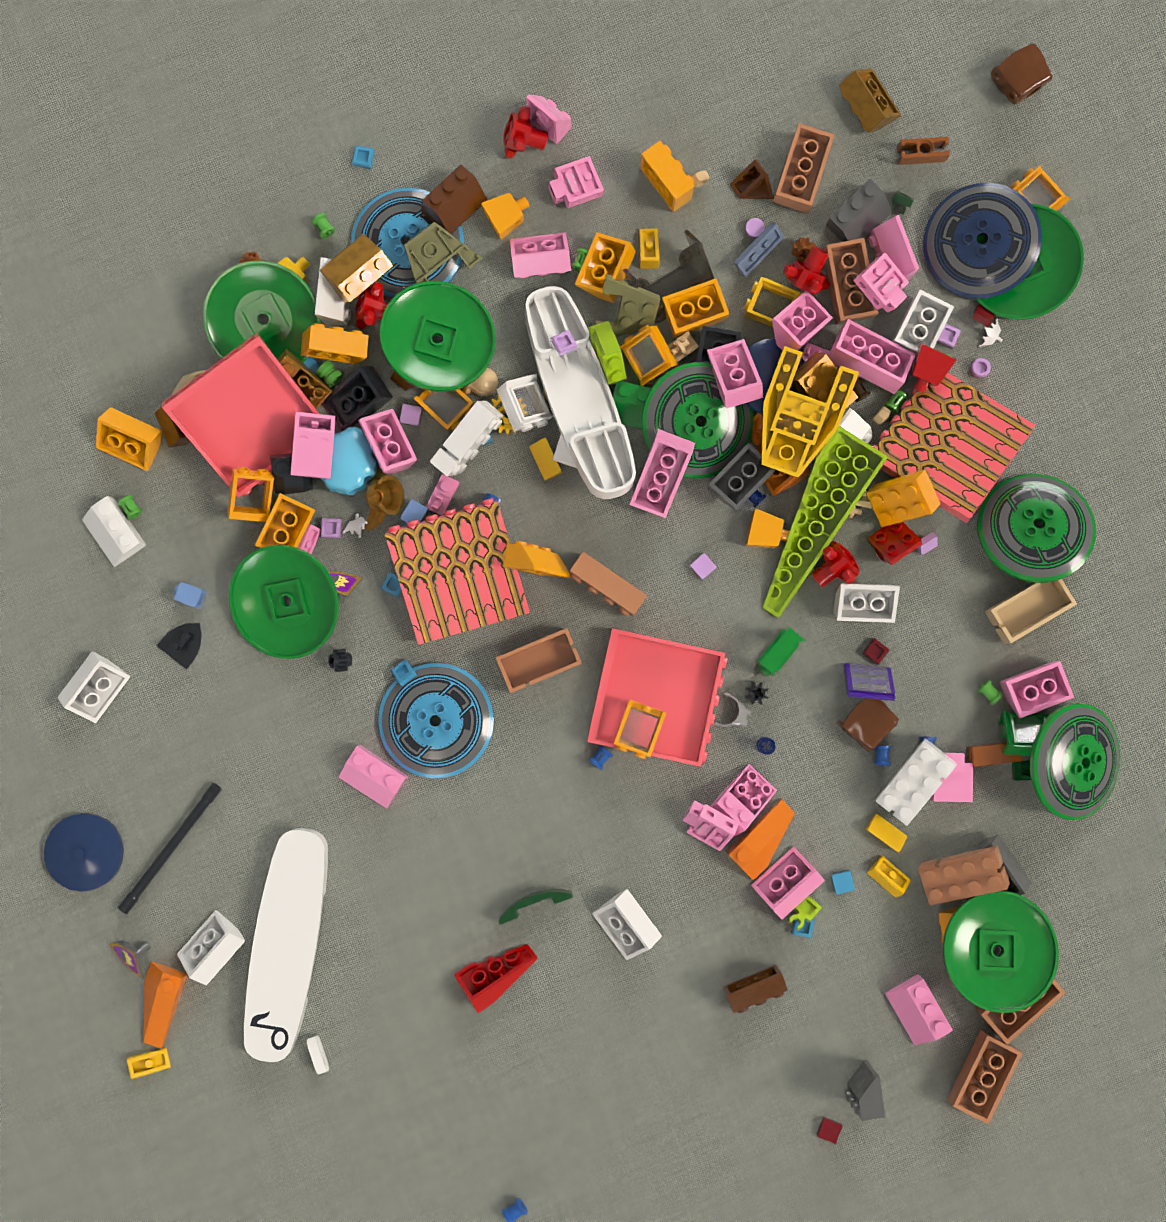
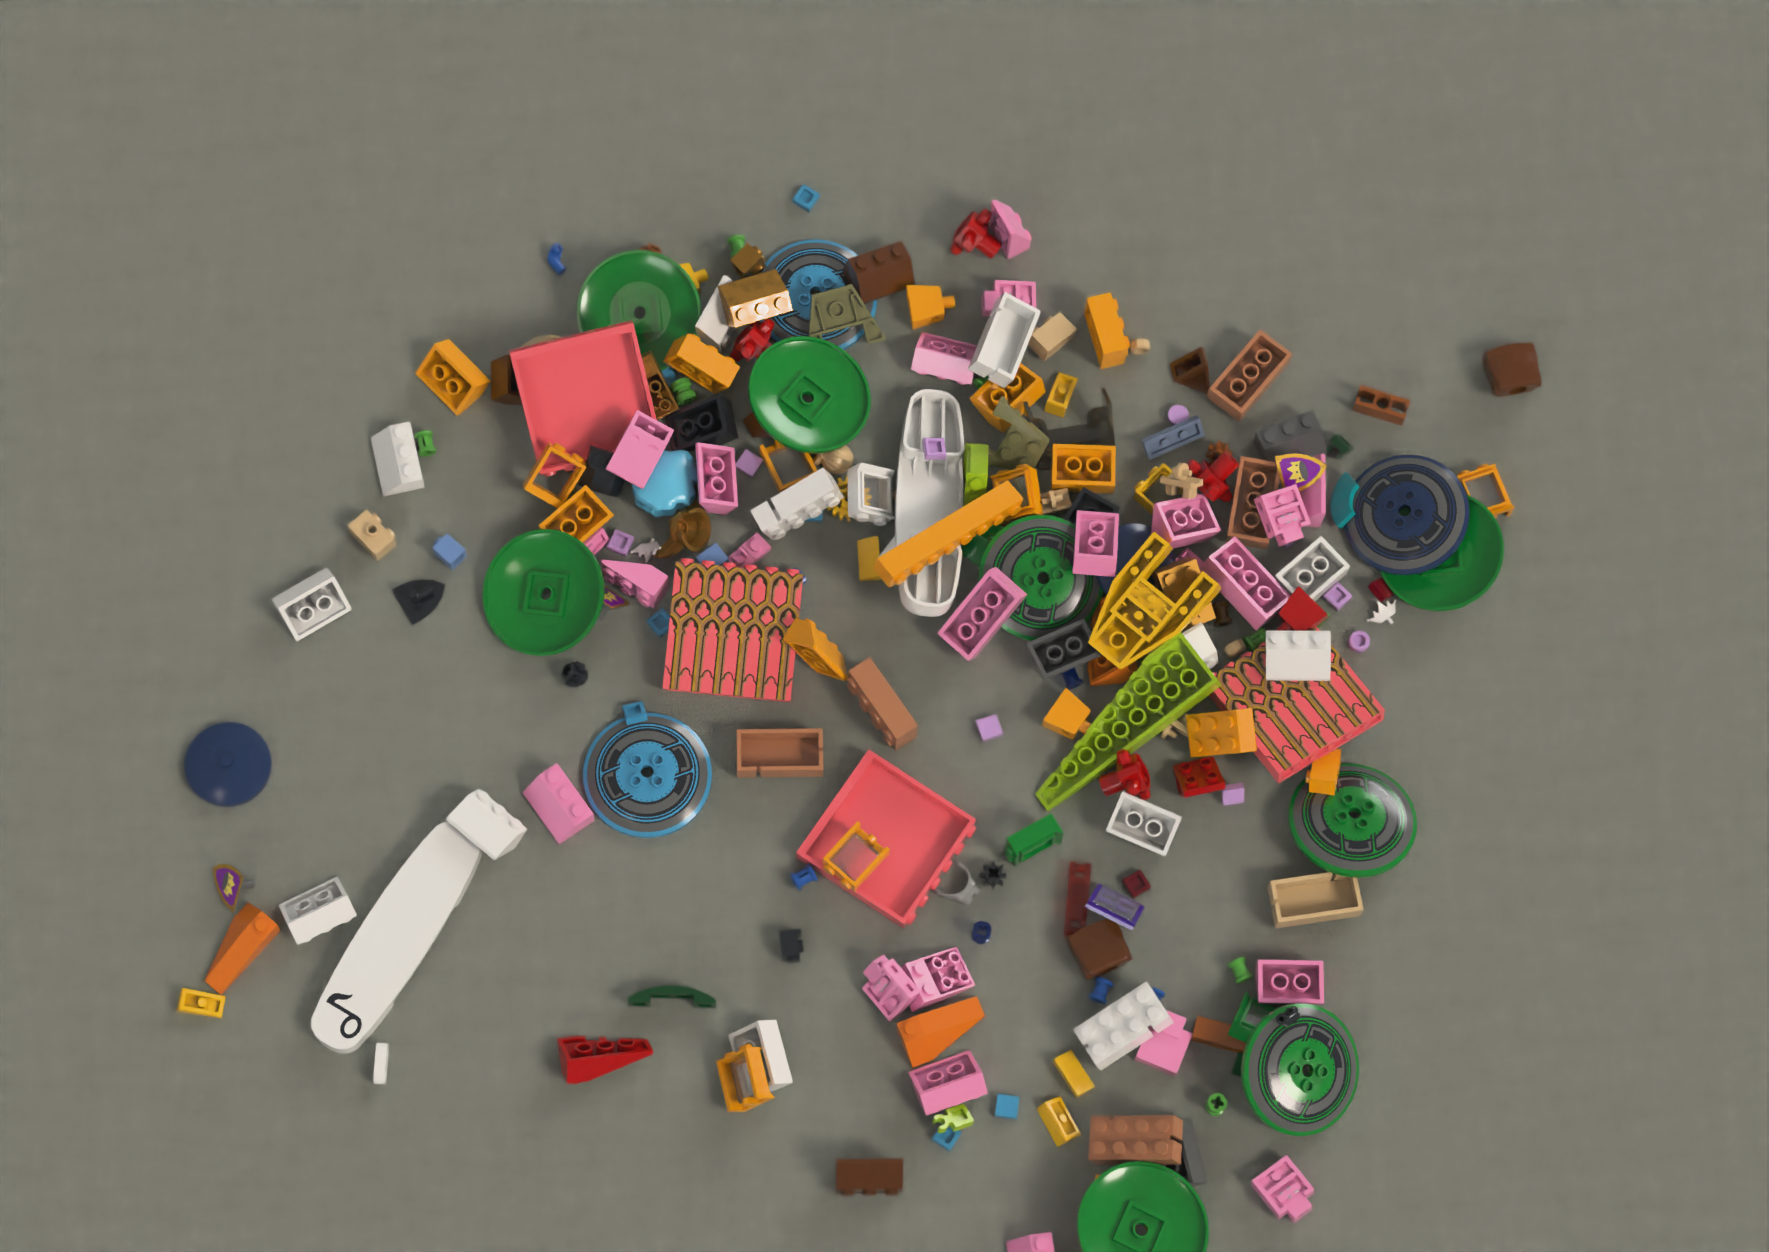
camera: 20 degrees right, 15 degrees down
(119, 606) = (372, 534): none -> tan brick
(132, 897) = (259, 828): black piece -> none
(171, 298) = (554, 257): none -> blue arm
(320, 822) = (487, 824): none -> white slope
(337, 235) = (748, 261): none -> pearl gold brick
(362, 557) = (637, 580): none -> bright pink slope
(585, 220) = (1004, 340): none -> white piece
(607, 418) = (948, 534): none -> light orange brick
(614, 820) = (791, 946): none -> black brick
(621, 952) = (743, 1079): none -> light orange window
(622, 199) = (1051, 336): none -> tan brick
(785, 286) = (1181, 478): none -> tan hips
(833, 684) = (1076, 897): none -> clear red plate
(869, 99) = (1345, 335): pearl gold slope -> none
(882, 238) = (1299, 469): none -> shield
(921, 247) = (1342, 500): none -> teal tile
(943, 405) = (1298, 655): none -> white slope
(1001, 498) = (1324, 773): none -> light orange slope
(1010, 808) = (1210, 1106): none -> bright green bush
(1060, 729) = (1291, 1017): none -> black arm
(1095, 862) = (1284, 1190): none -> bright pink piece

